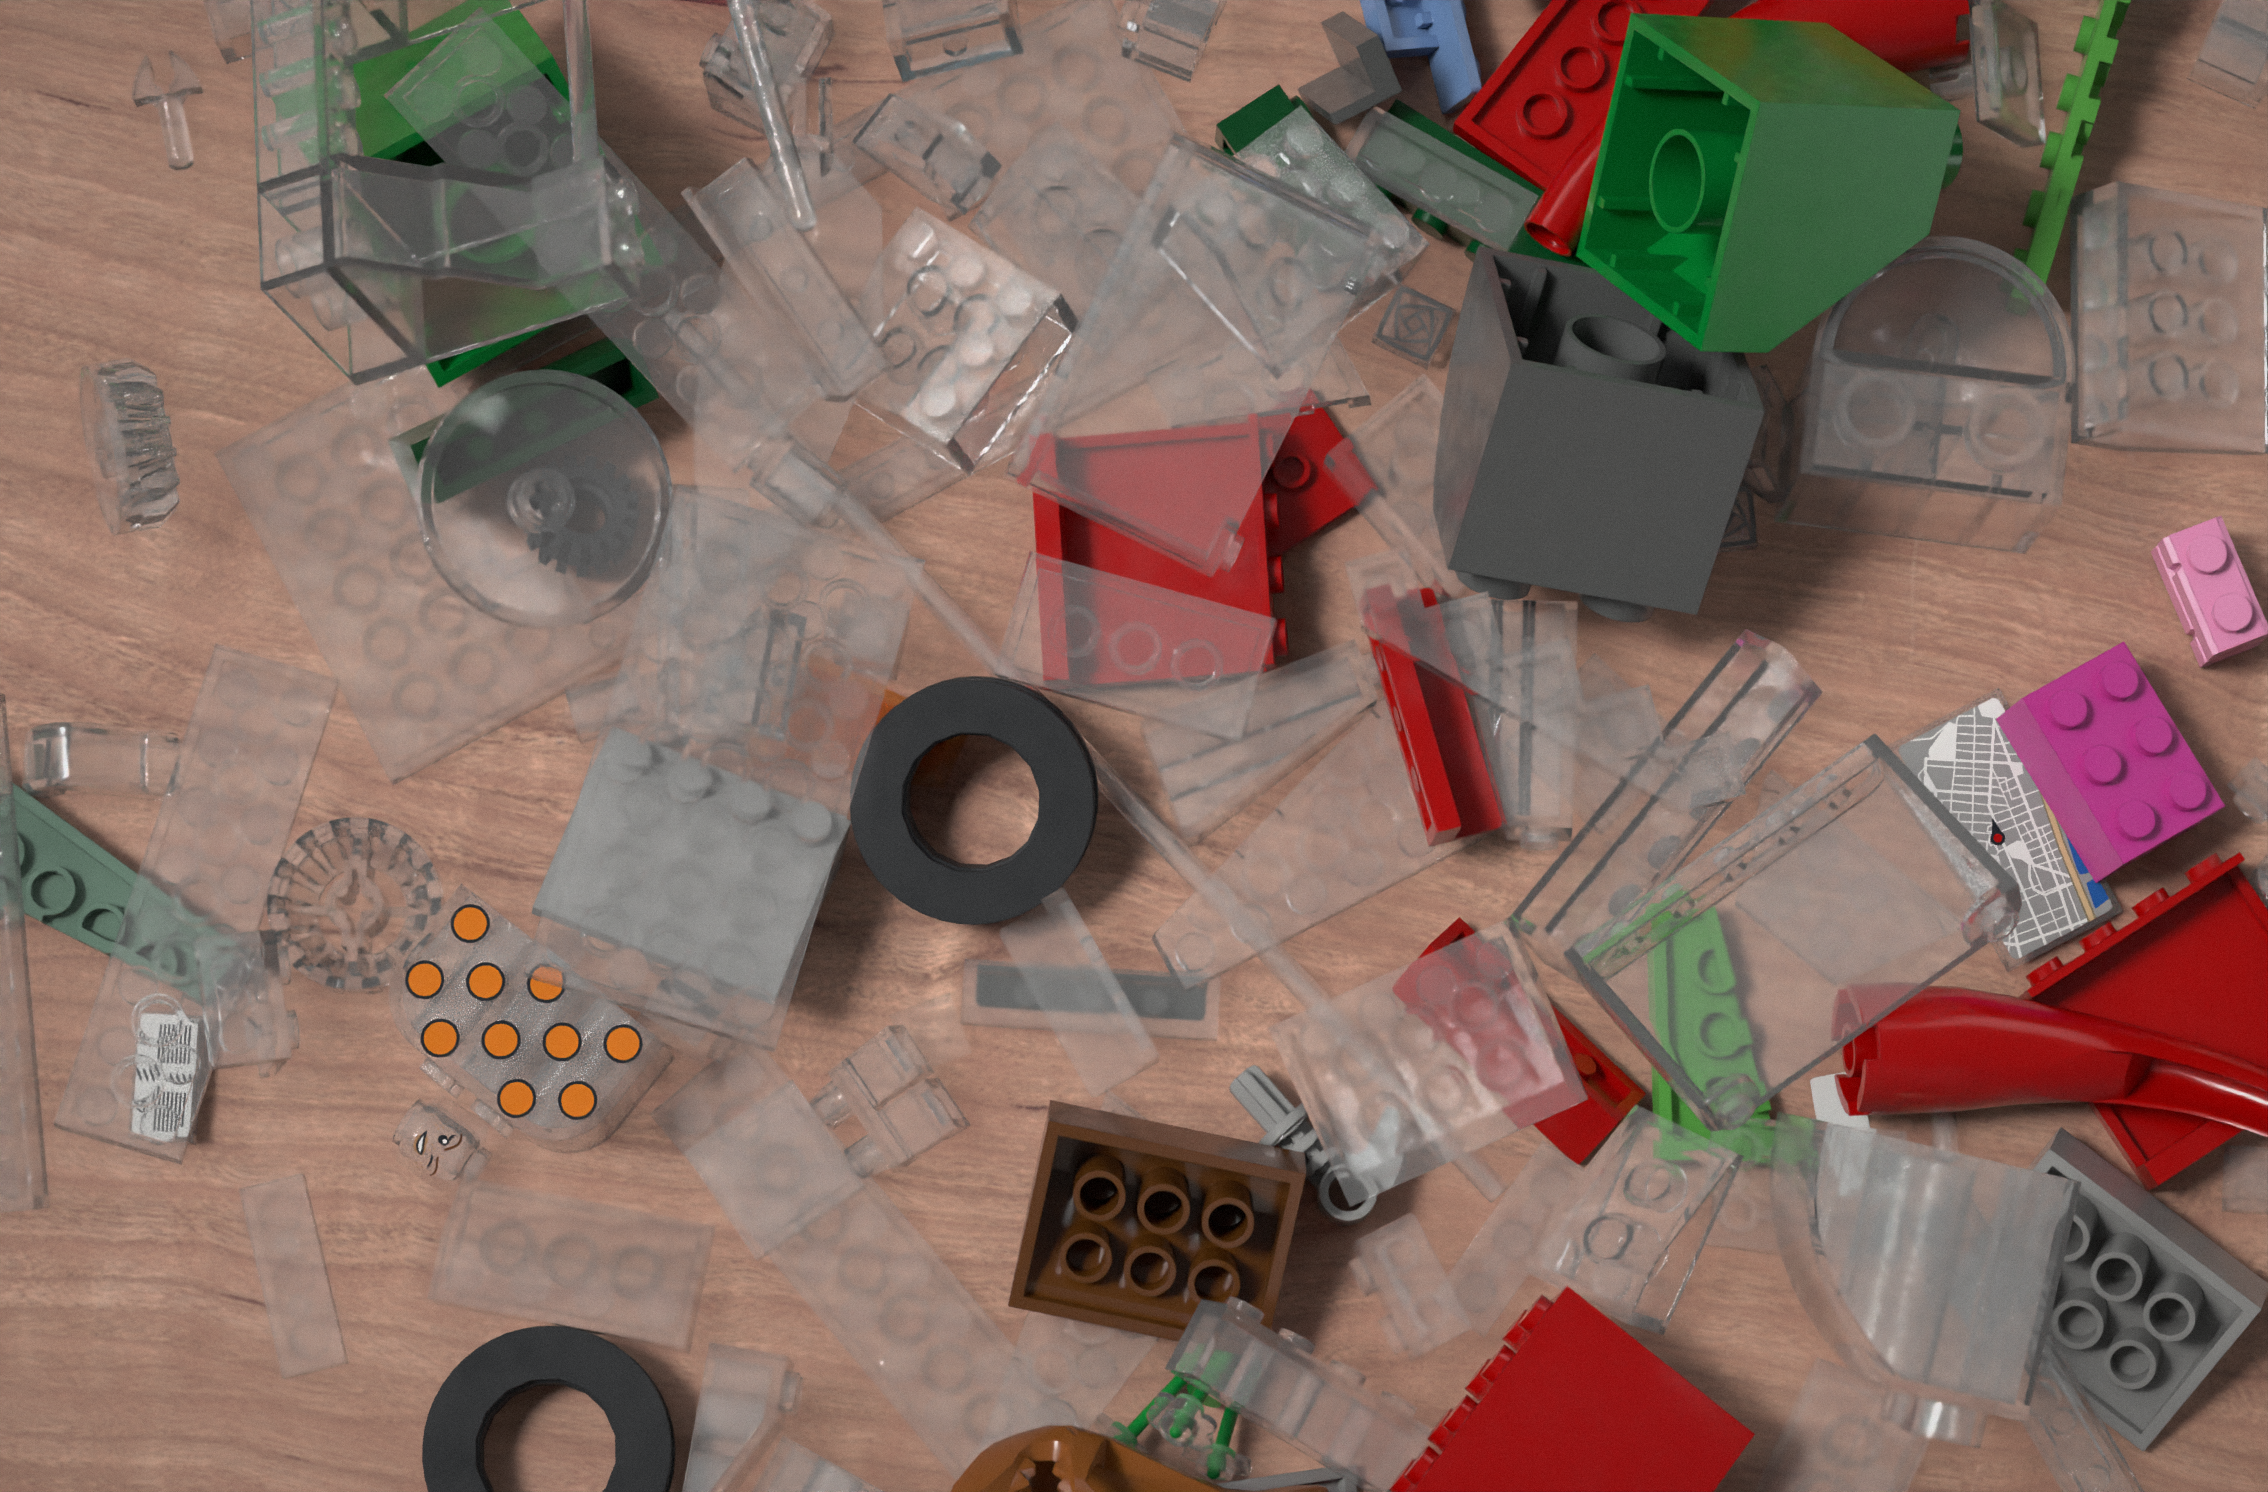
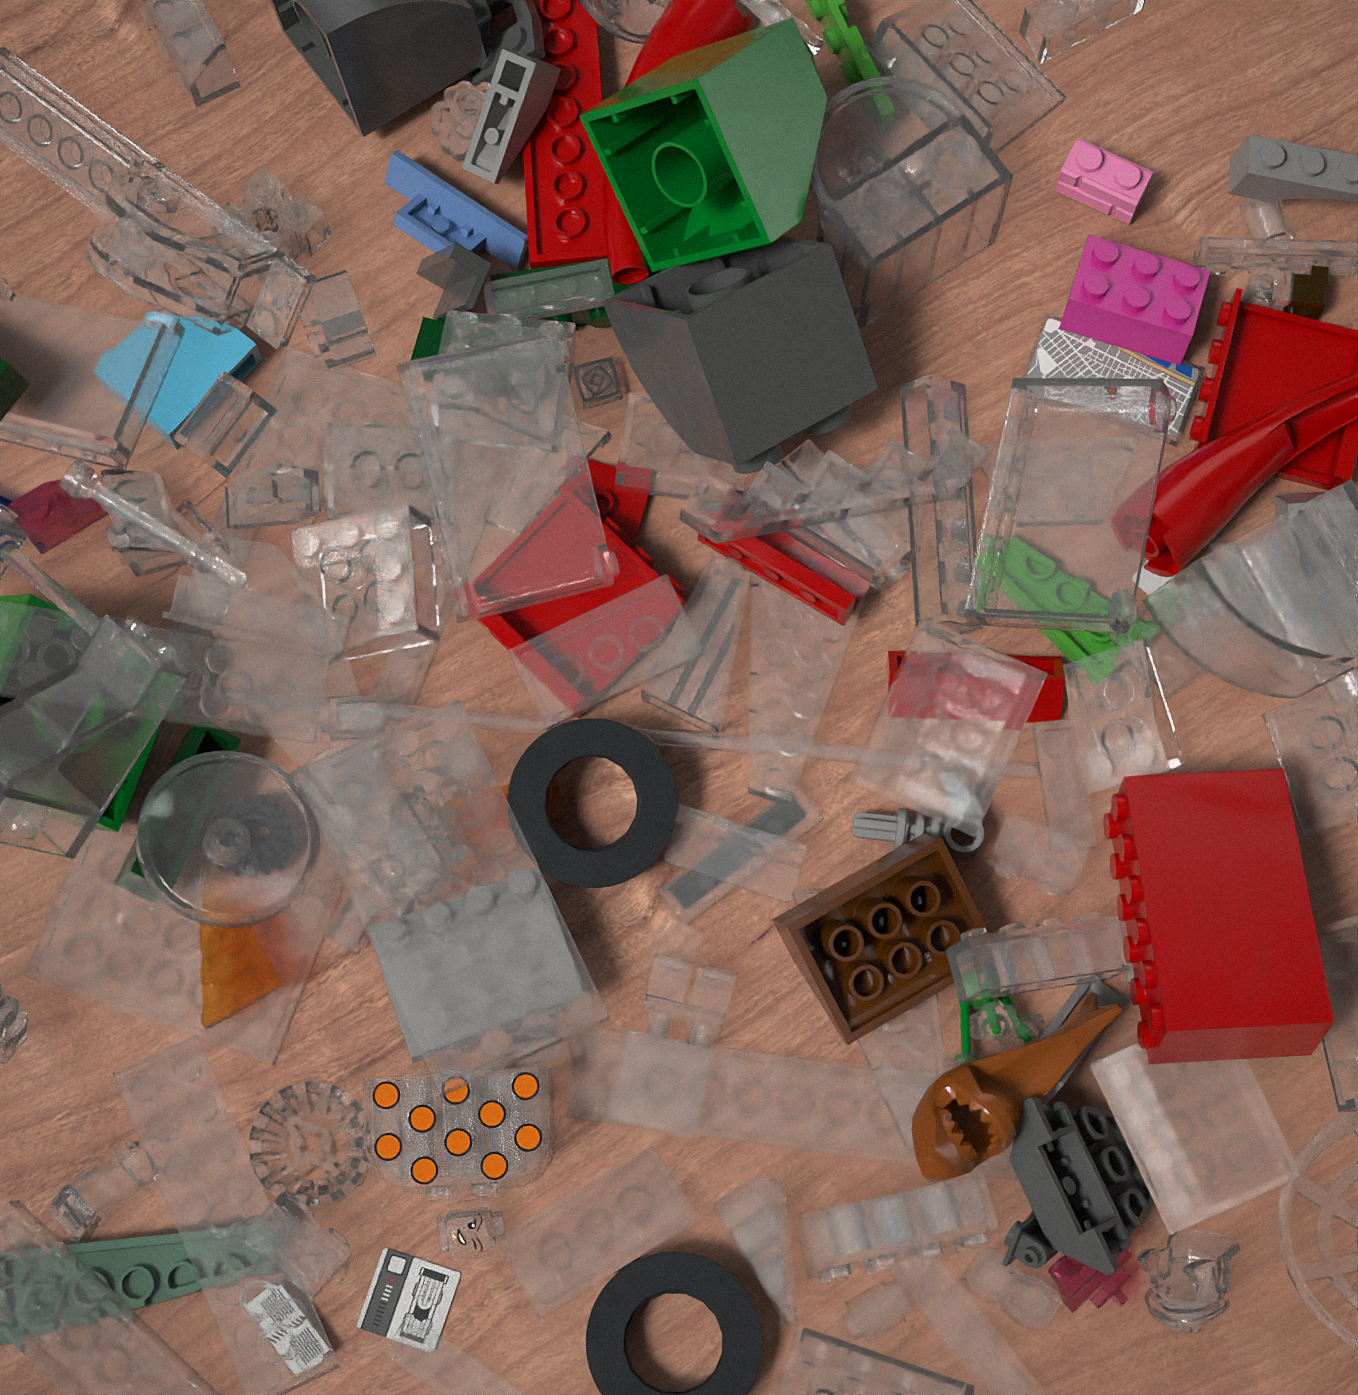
camera: 40 degrees left, 5 degrees down
(327, 1145) = (404, 1287): none -> clear sticker
(430, 649) = (233, 972): none -> clear orange wing

